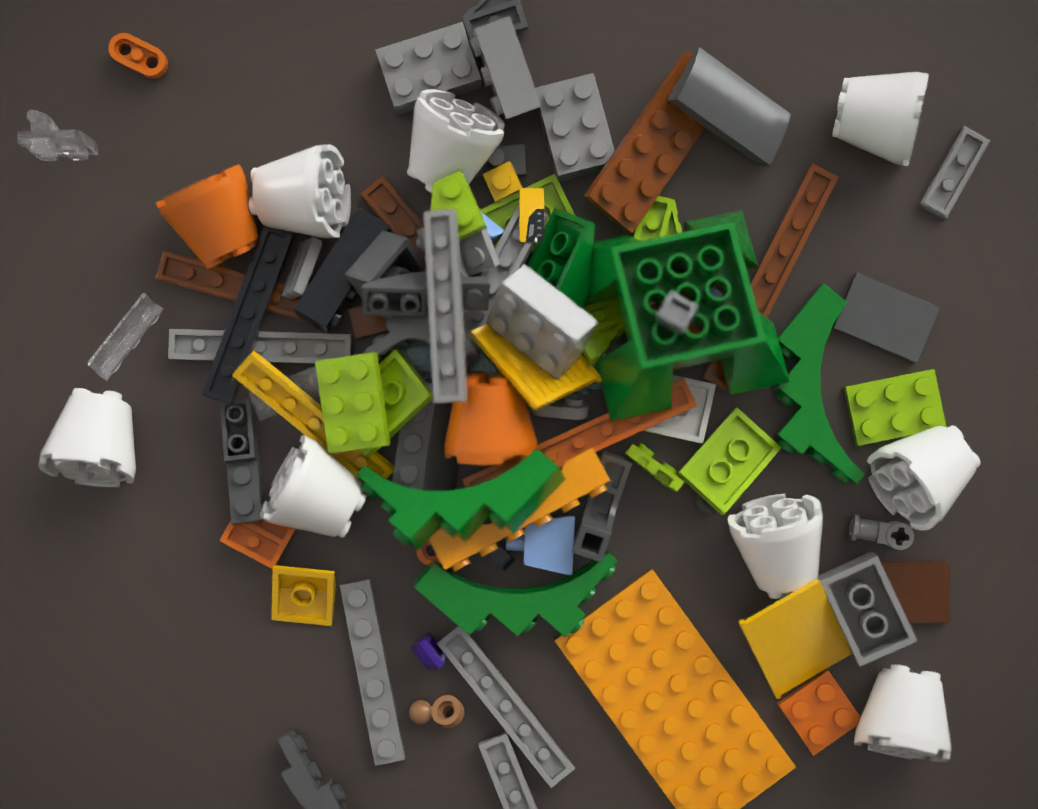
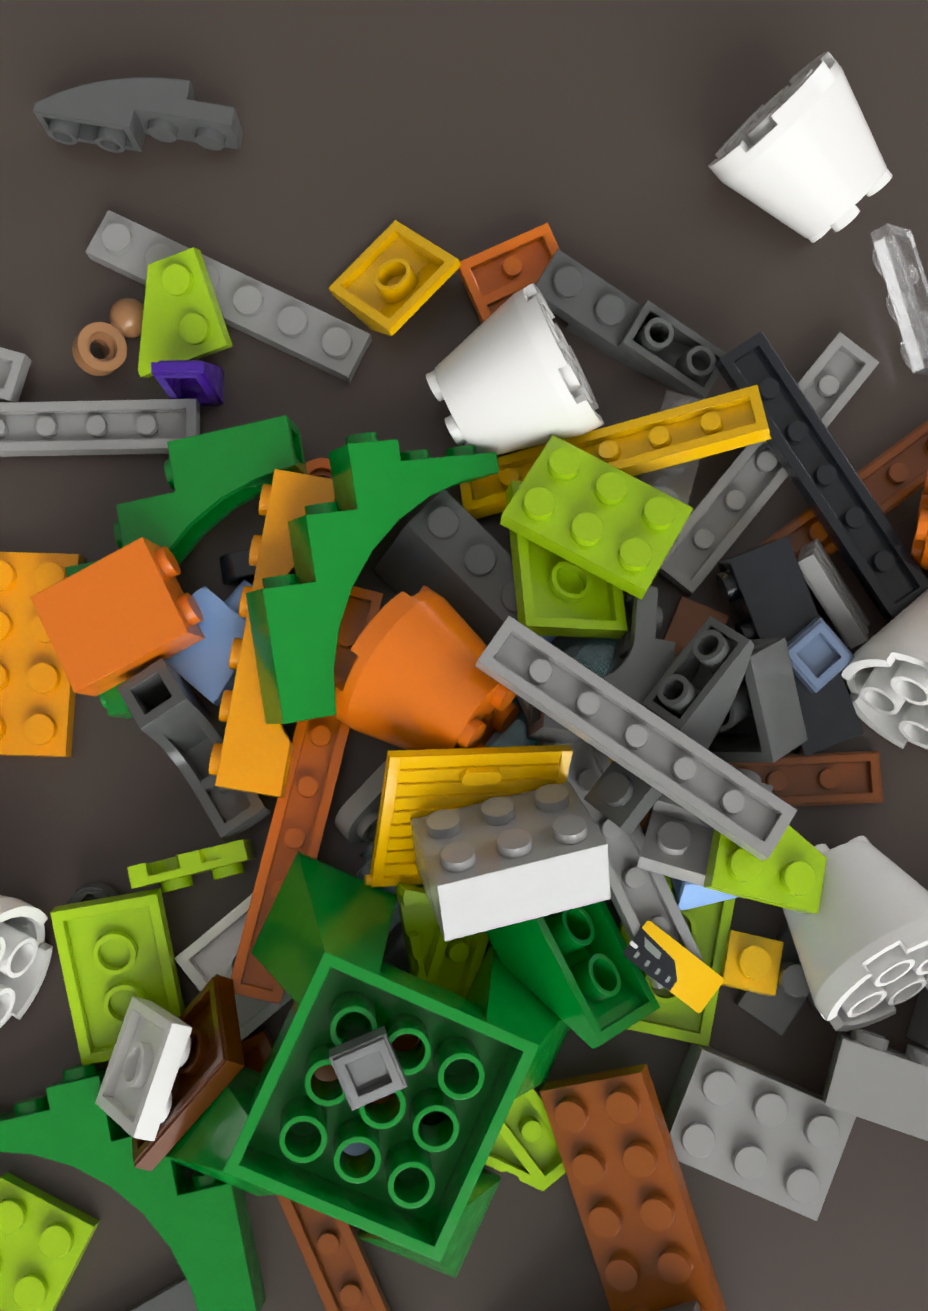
camera: 135 degrees right, 5 degrees down
(339, 254) = (817, 655): none -> sand blue tile
(401, 684) = (180, 312): none -> lime wing
(568, 588) = (118, 616): none -> orange brick
(744, 395) = (210, 1067): none -> reddish brown tile
(756, 415) = (144, 1068): none -> white plate

